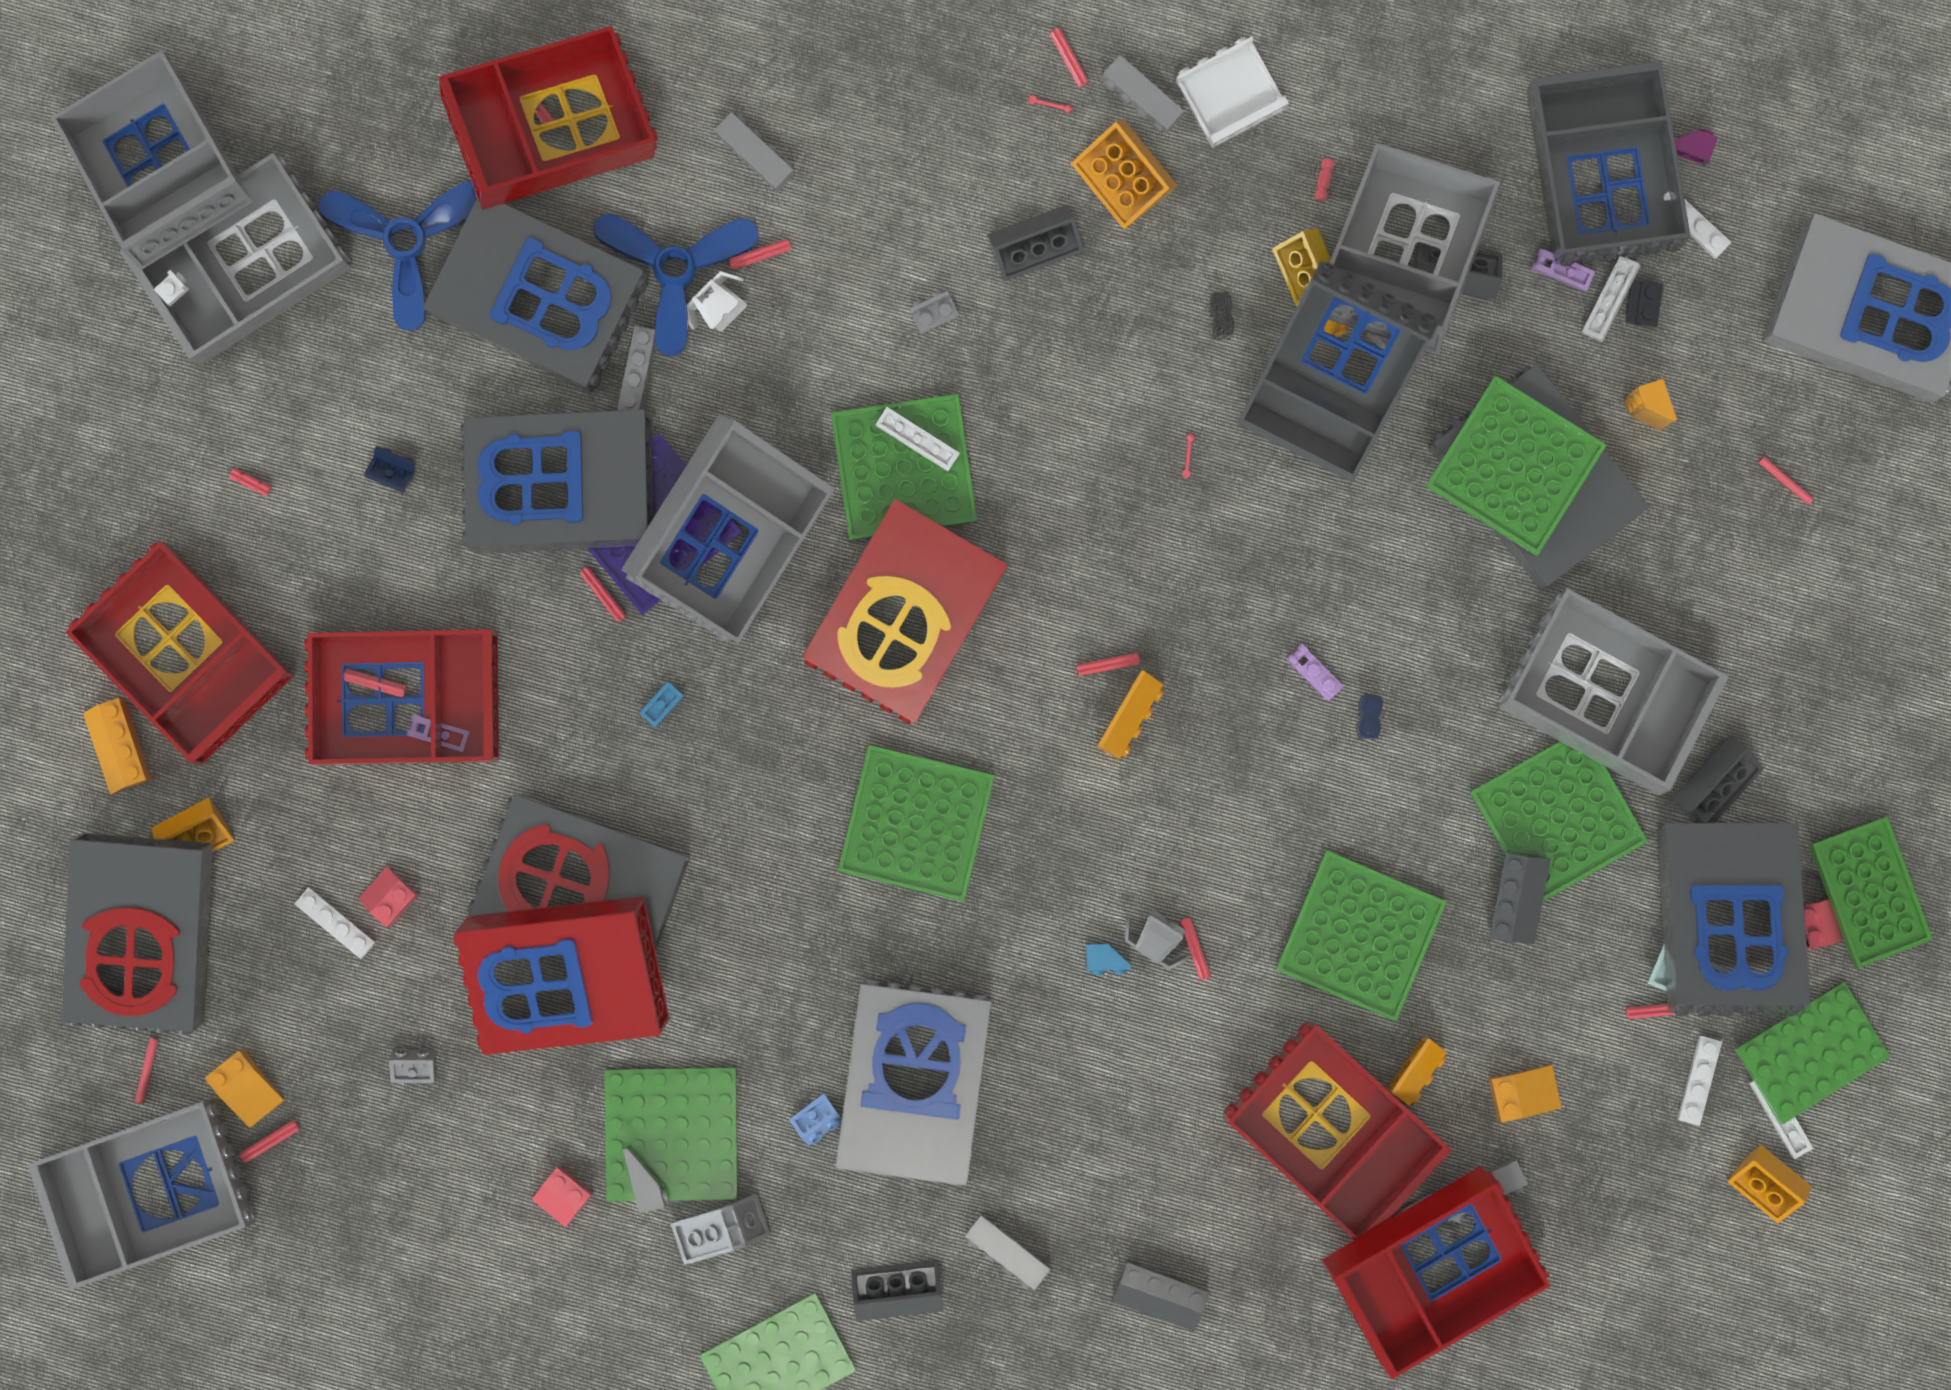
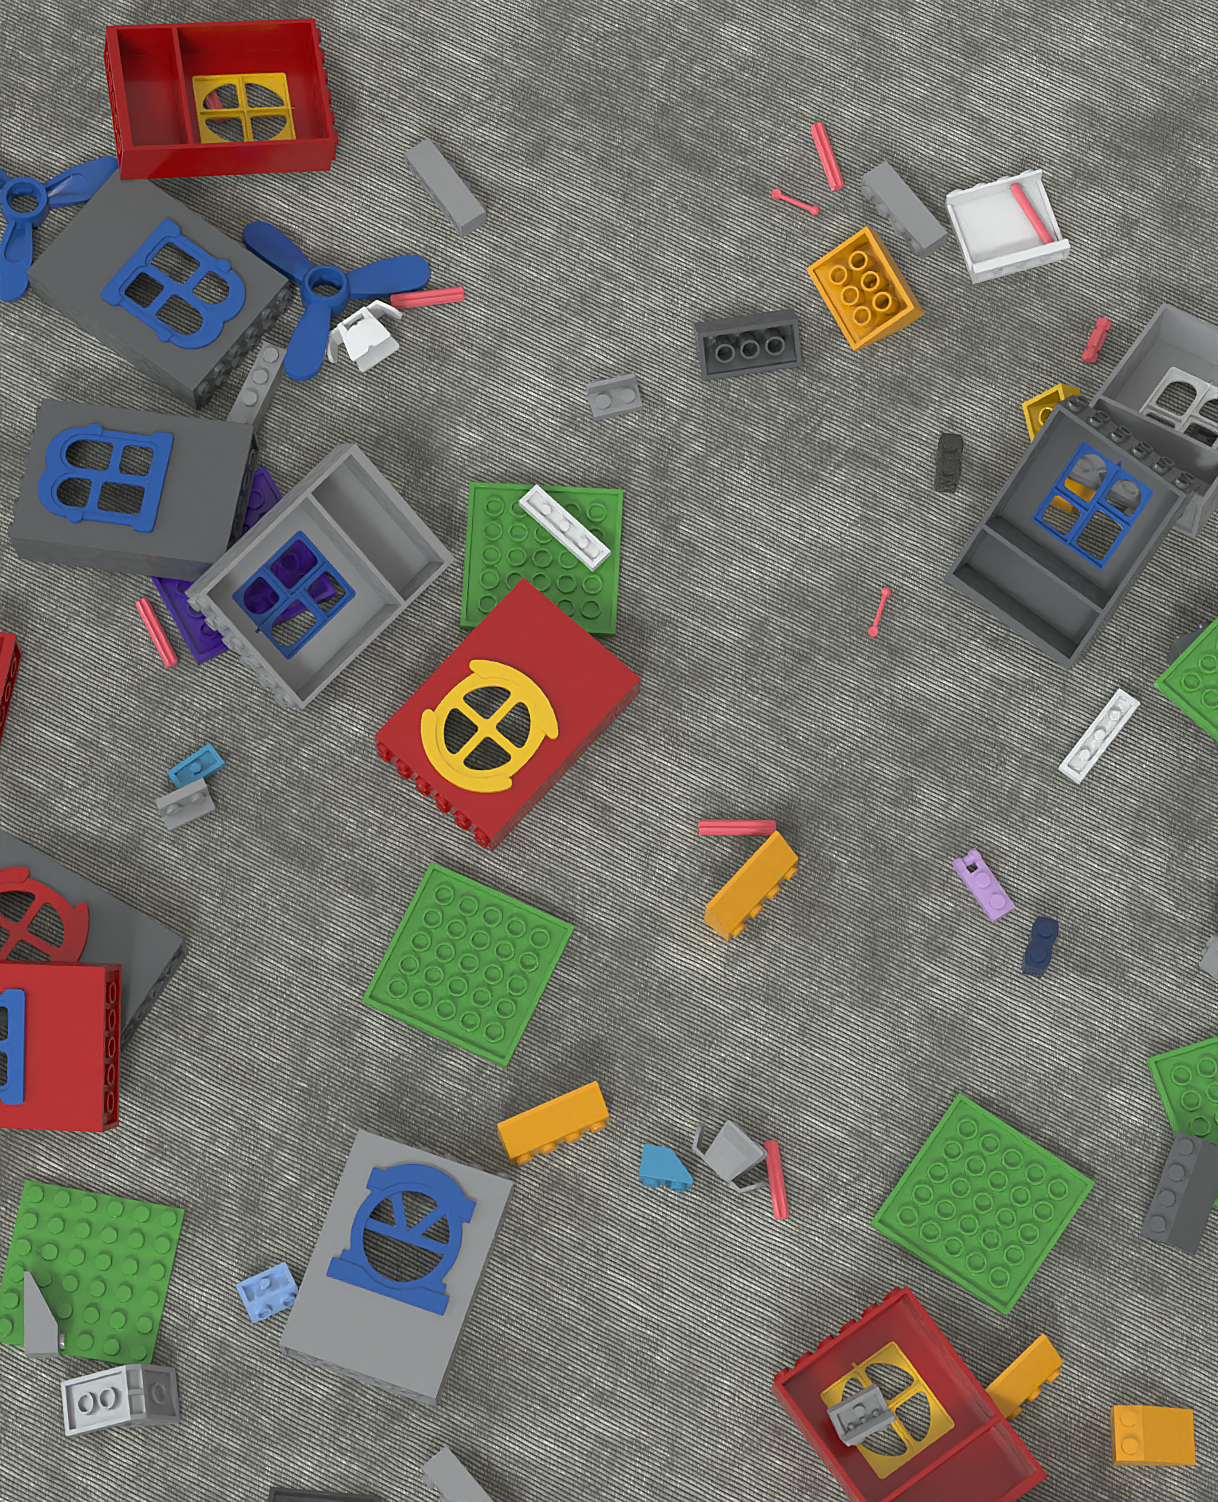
camera: 10 degrees right, 15 degrees down
(660, 738) = (185, 805): none -> light grey bracket
(1011, 942) = (553, 1124): none -> light orange slope
(1251, 78) = (1031, 214): none -> coral bar
(1300, 1137) = (861, 1415): none -> light grey bracket
(1386, 528) = (1099, 736): none -> white plate

